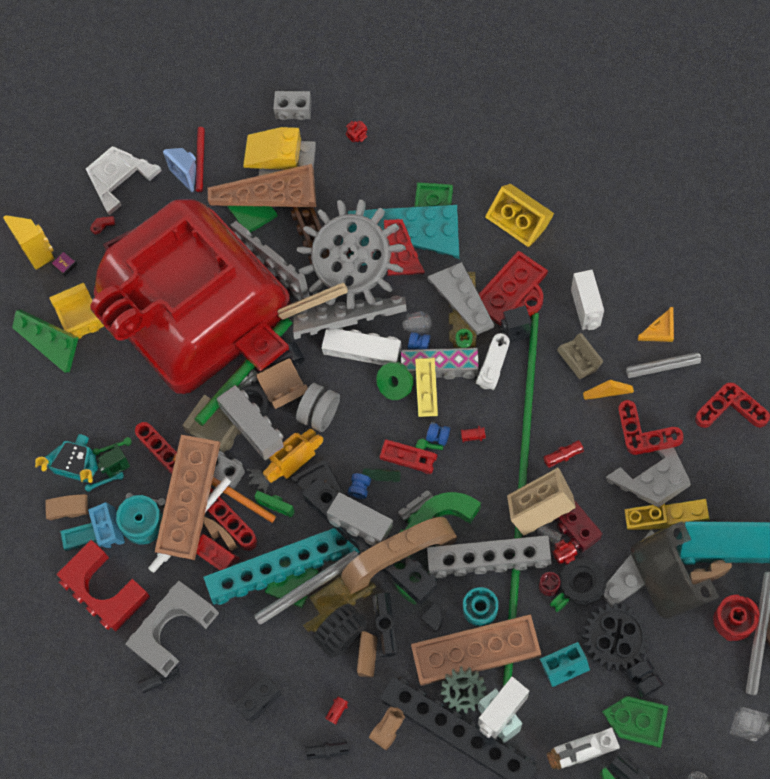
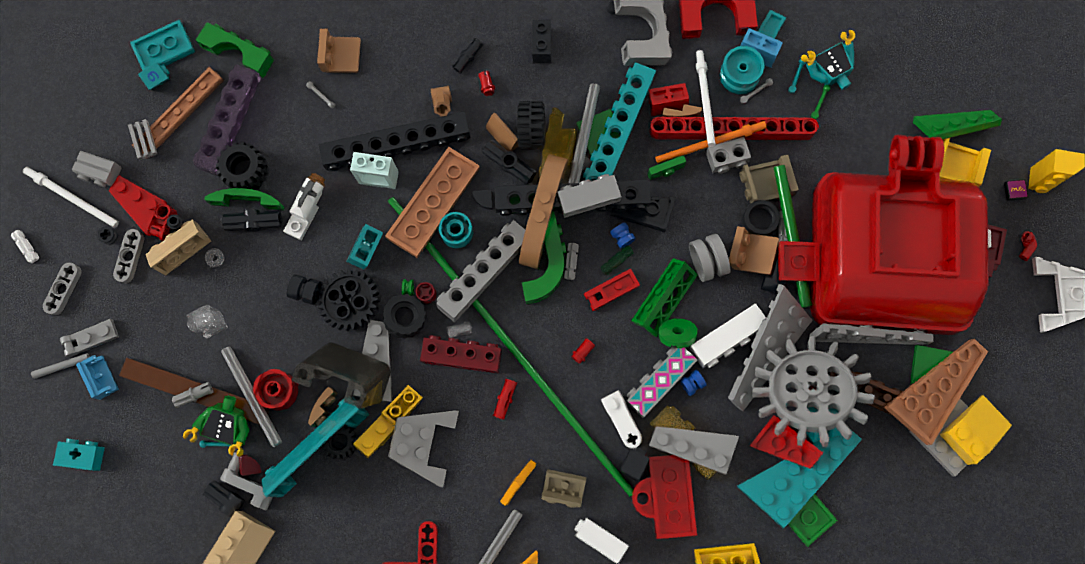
camera: 135 degrees right, 10 degrees up
(66, 506) = (800, 35): medium nougat slope -> none
(113, 462) = (805, 89): dark green brick -> none
(182, 166) = (1027, 348): light blue slope -> none
(187, 497) = (725, 106): nougat plate -> none
(200, 159) = (1024, 372): red bar -> none
(250, 422) = (742, 196): light grey brick -> none
(258, 479) = (696, 176): dark grey piece -> none
(293, 101) = (1013, 494): light grey brick -> none
(293, 455) = (690, 209): light orange hinge -> none
(312, 300) = (800, 329): tan axle -> none
(356, 131) = (933, 517): red gear -> none
(376, 417) = (662, 294): none -> green fence
(417, 322) = (710, 396): clear head -> none
(423, 444) = (611, 308): green hand -> none
(426, 387) = (650, 349): light yellow plate -> none
(433, 433) = (611, 324): blue wheel -> none
(456, 683) = (416, 169): sand green gear -> none
(464, 332) = (665, 416): green bush -> none
(502, 708) = (364, 156): white brick -> none
(540, 502) = (482, 338): tan slope -> none
(564, 552) = (435, 324): red gear -> none
(638, 720) = (286, 260): green tile -> none
(643, 438) = (455, 466): red beam -> none

